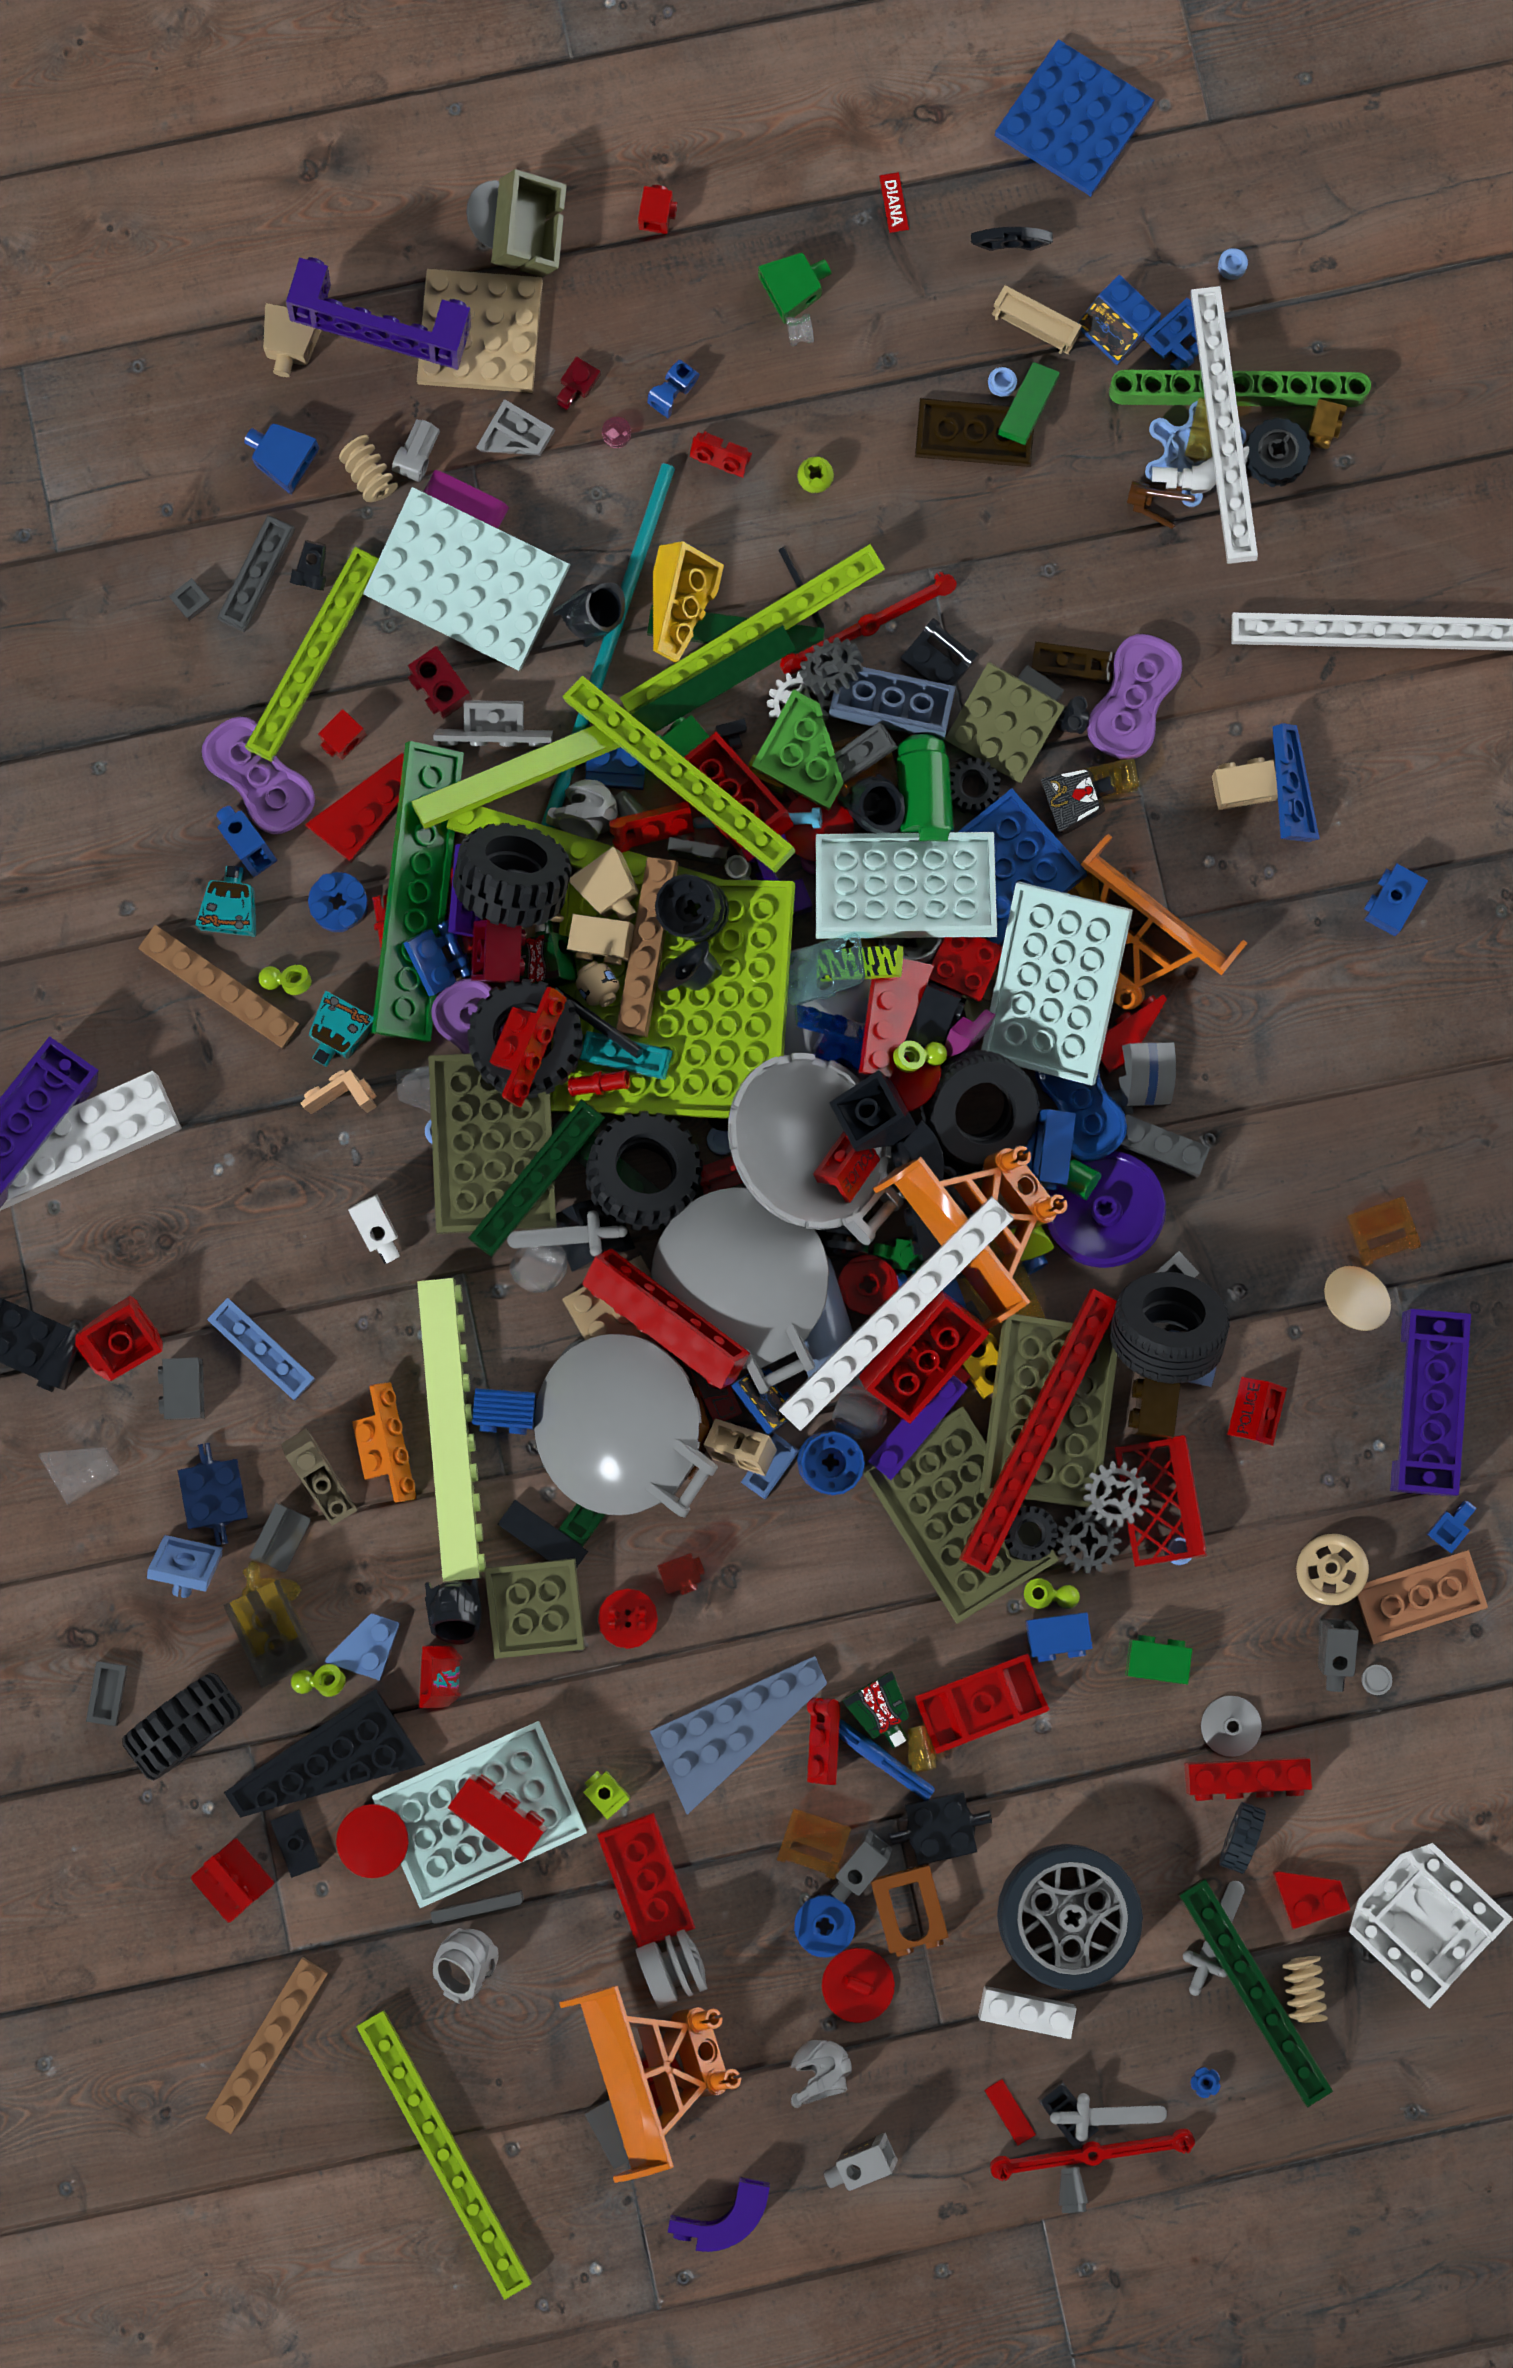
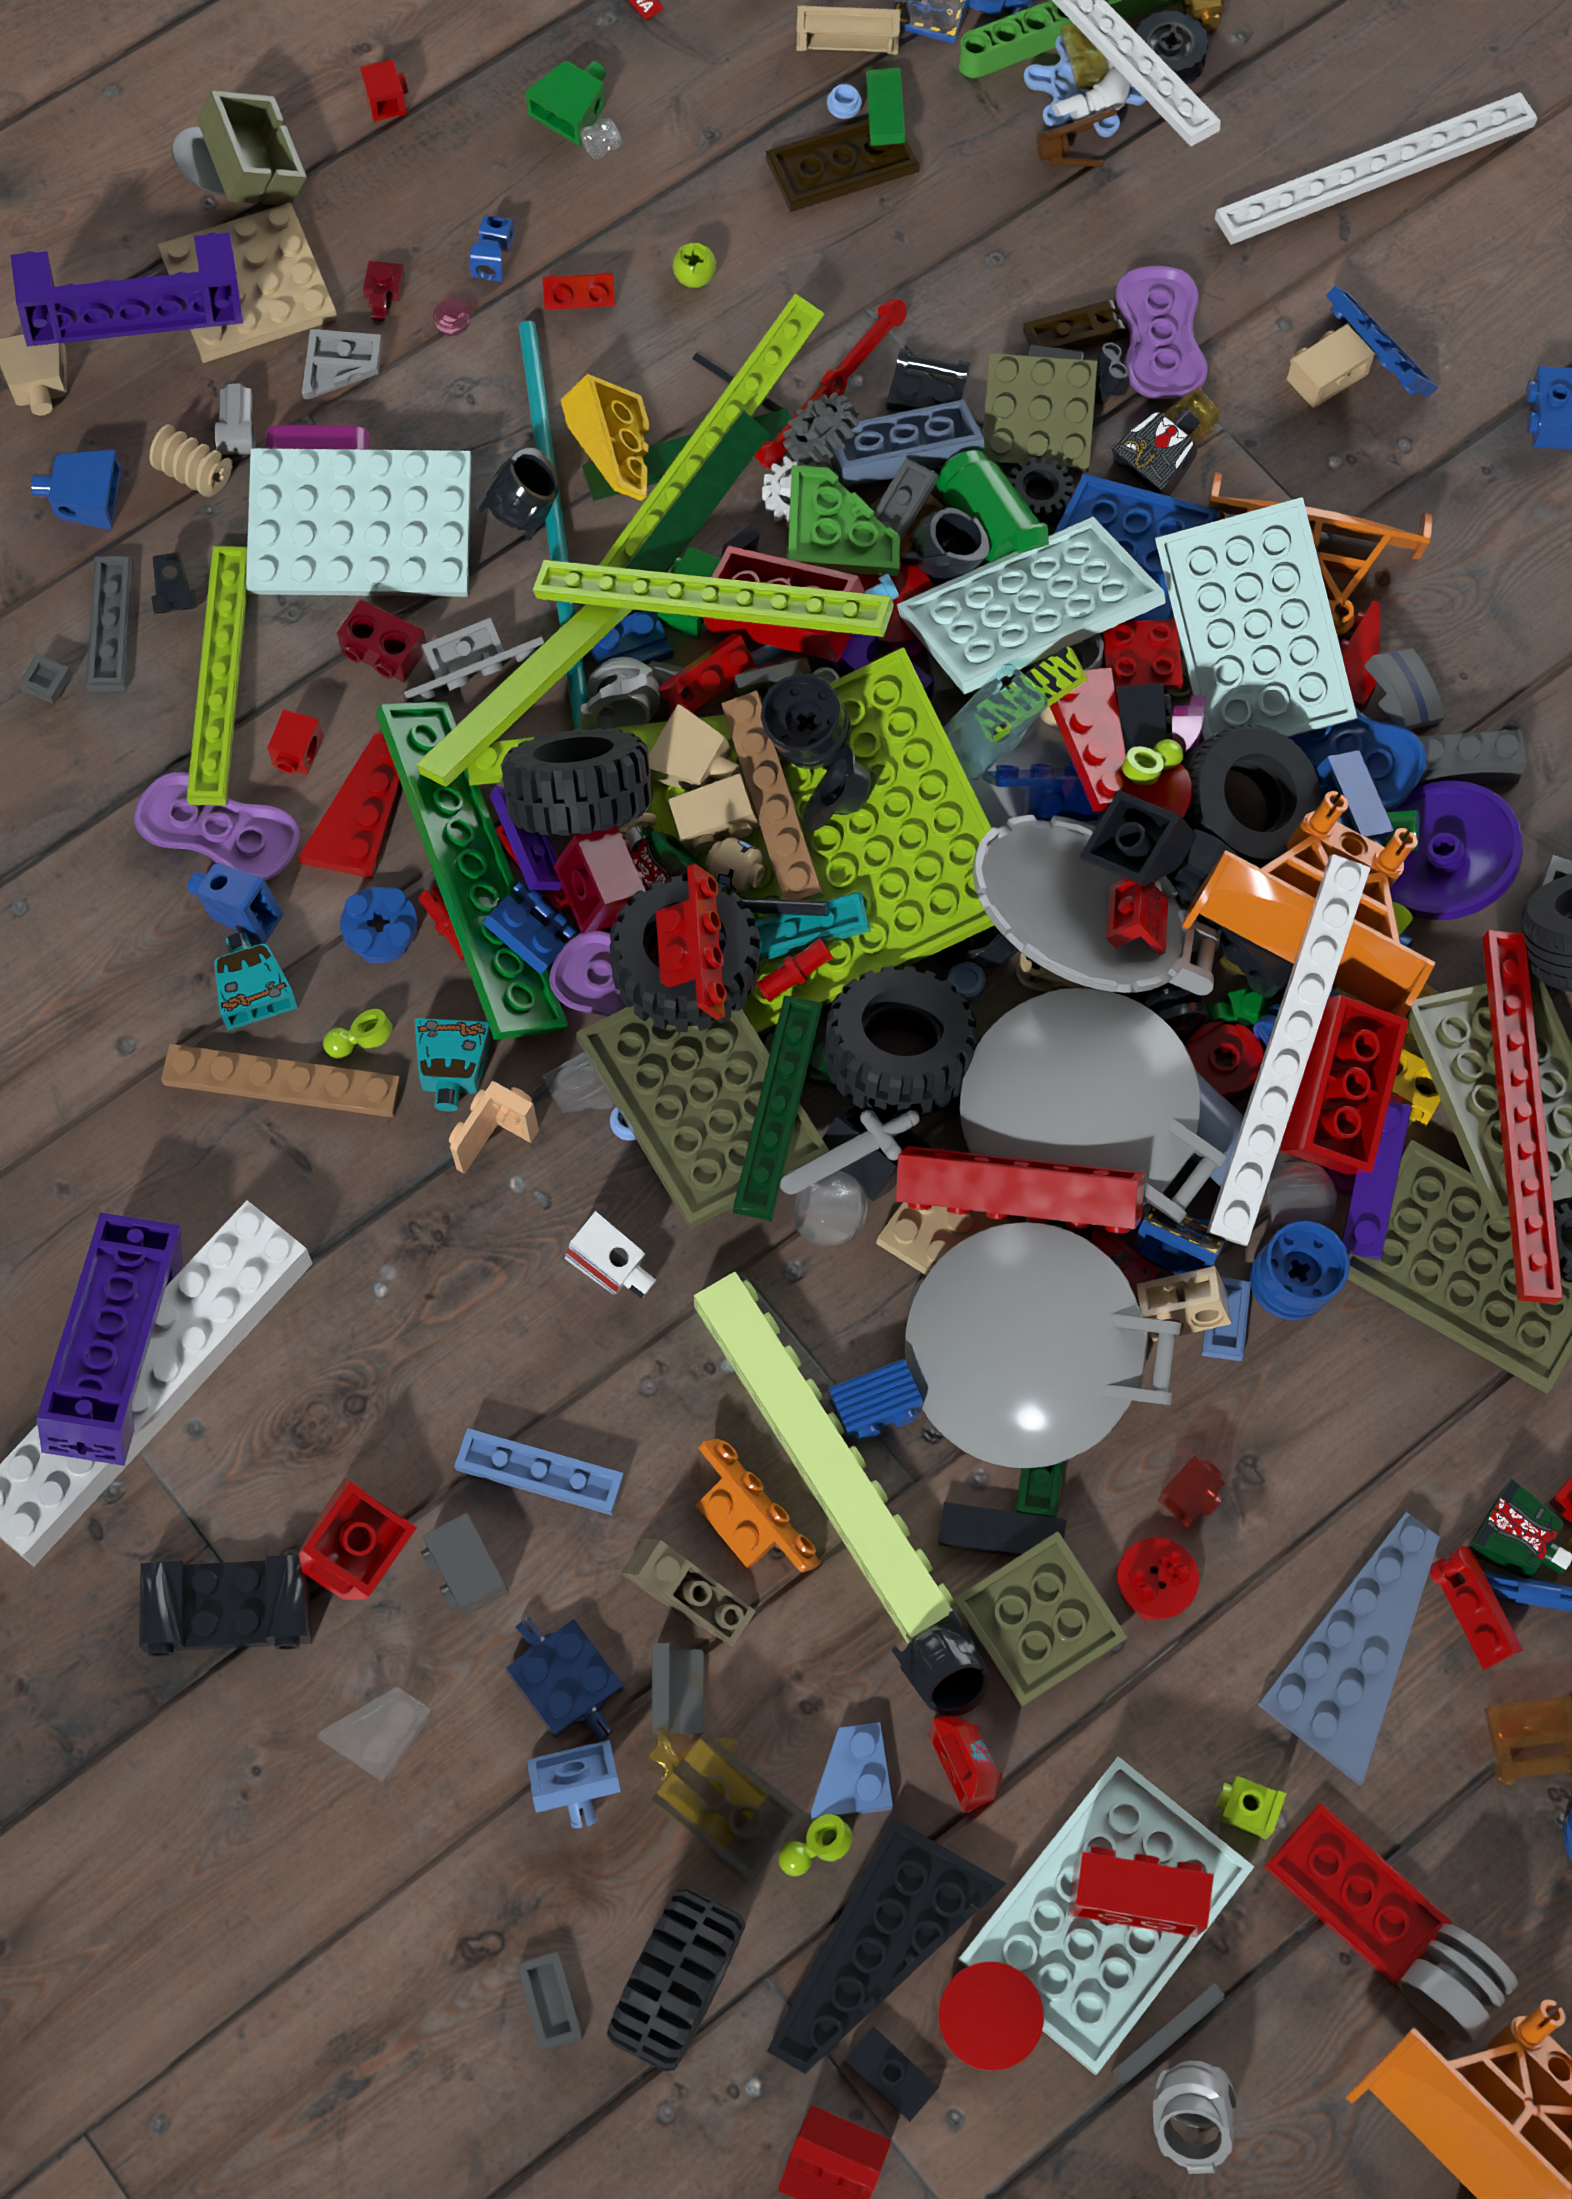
camera: 30 degrees left, 15 degrees down
(719, 1175) = (998, 1001): red hinge -> none

